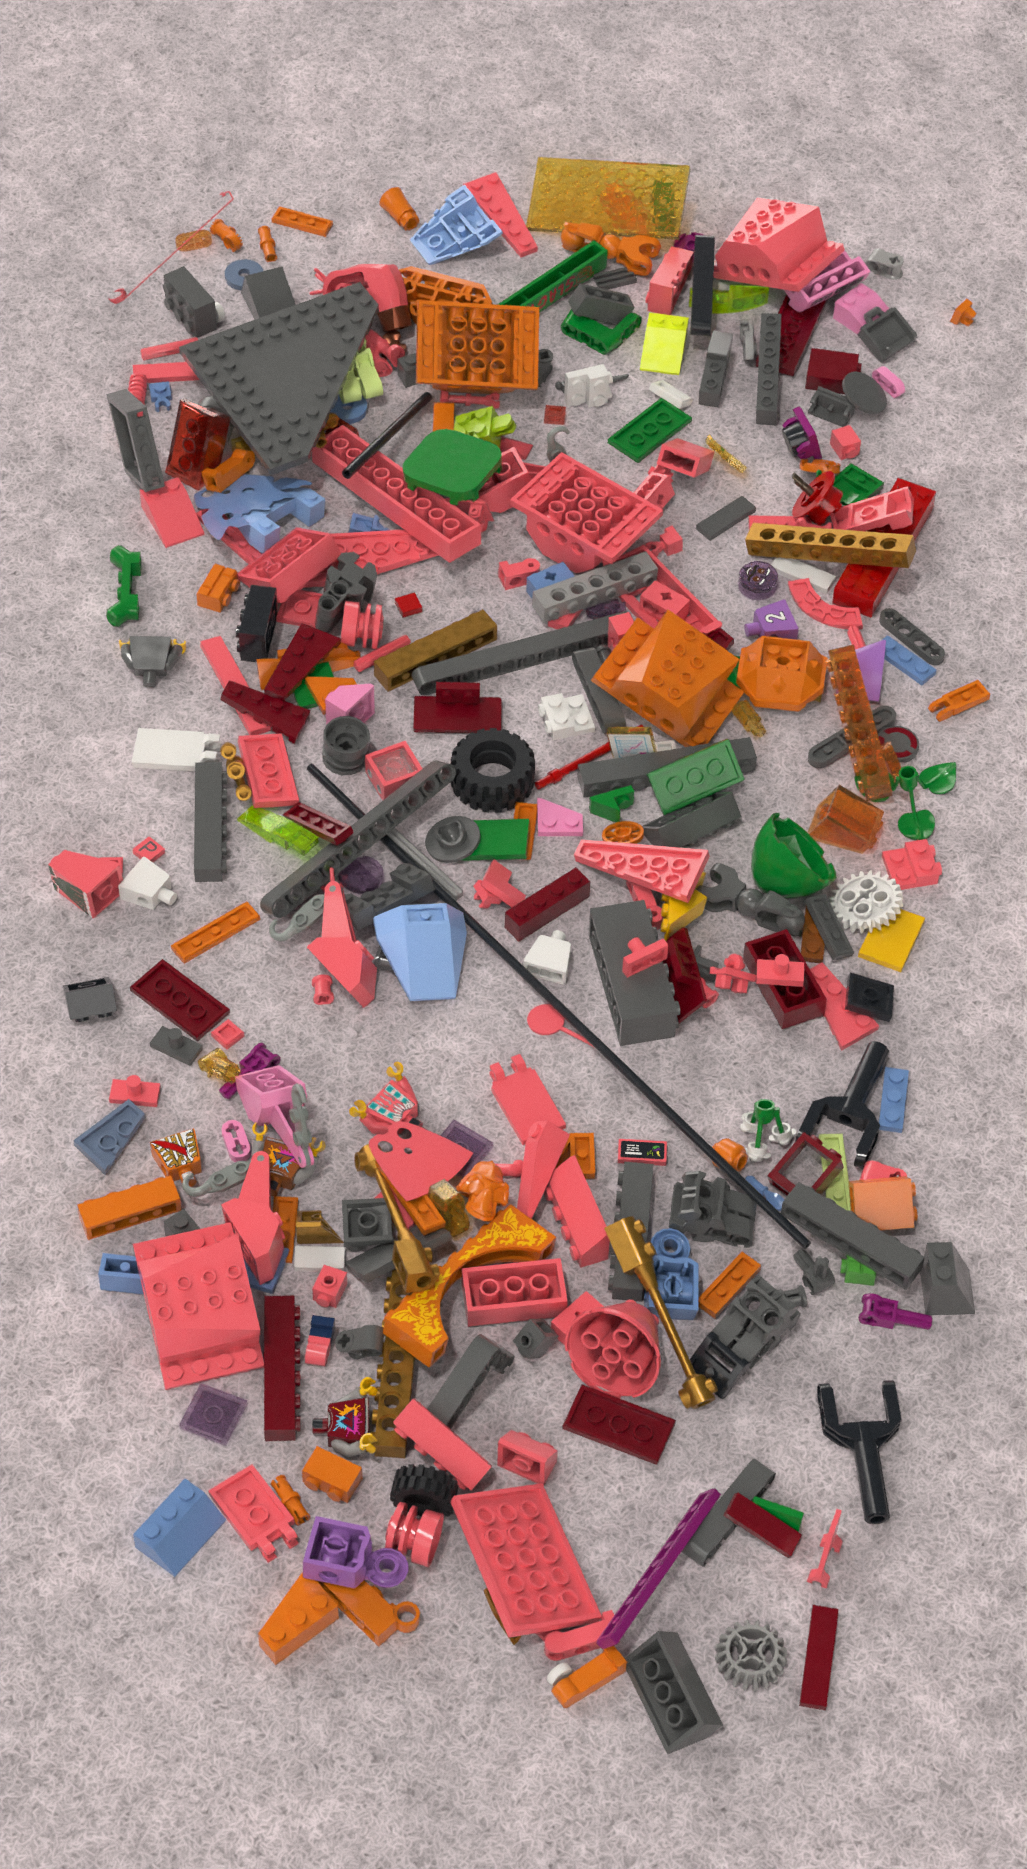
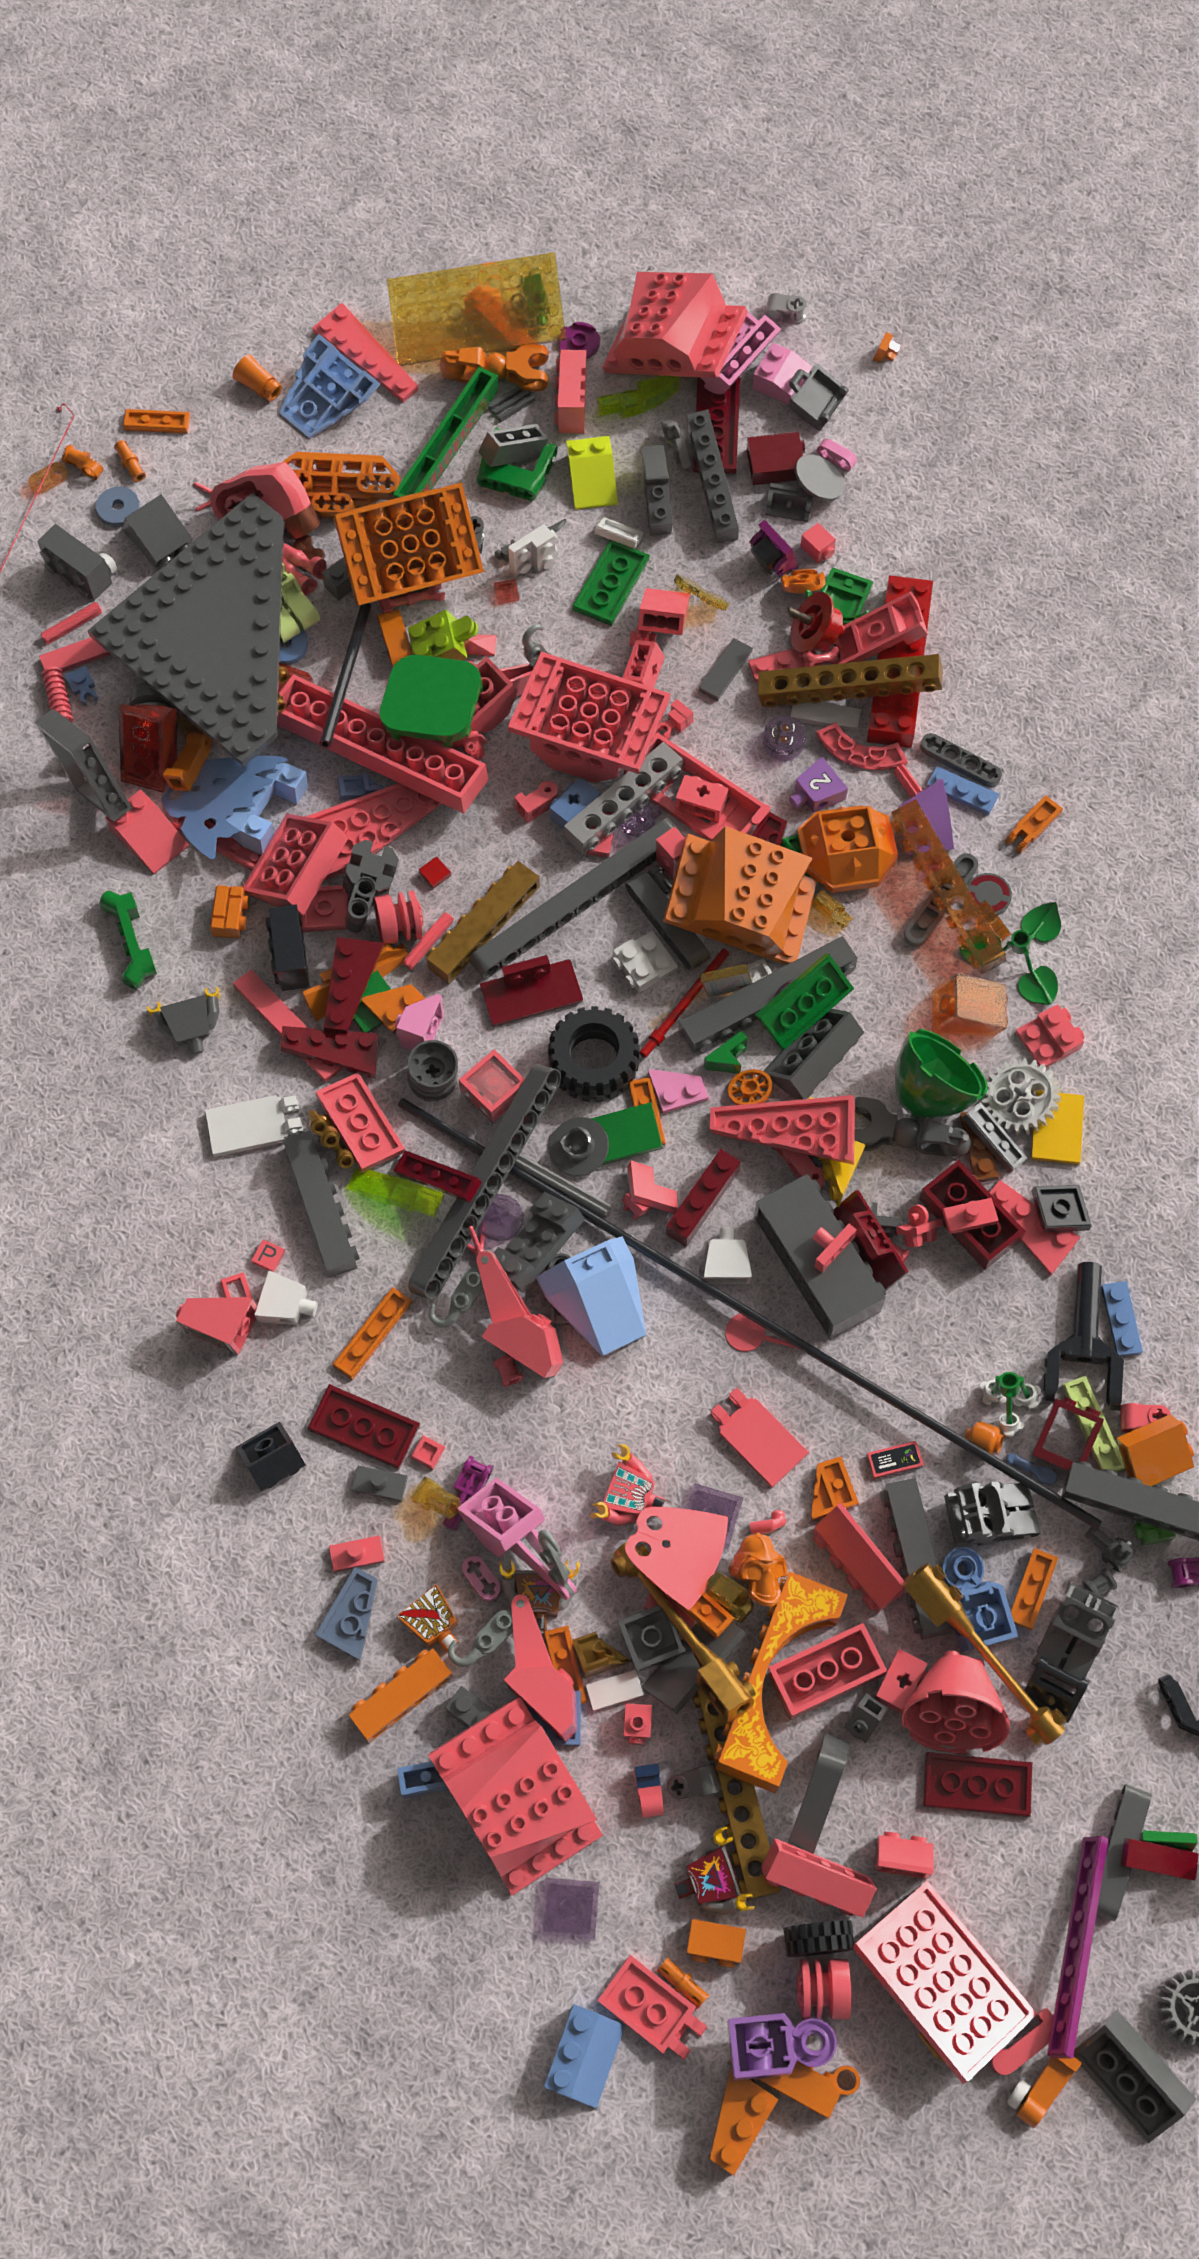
camera: 15 degrees left, 15 degrees up
(279, 1368) = (620, 1834): dark red brick -> none
(540, 1159) = (803, 1512): coral wedge -> none
(702, 285) = (611, 392): black beam -> none

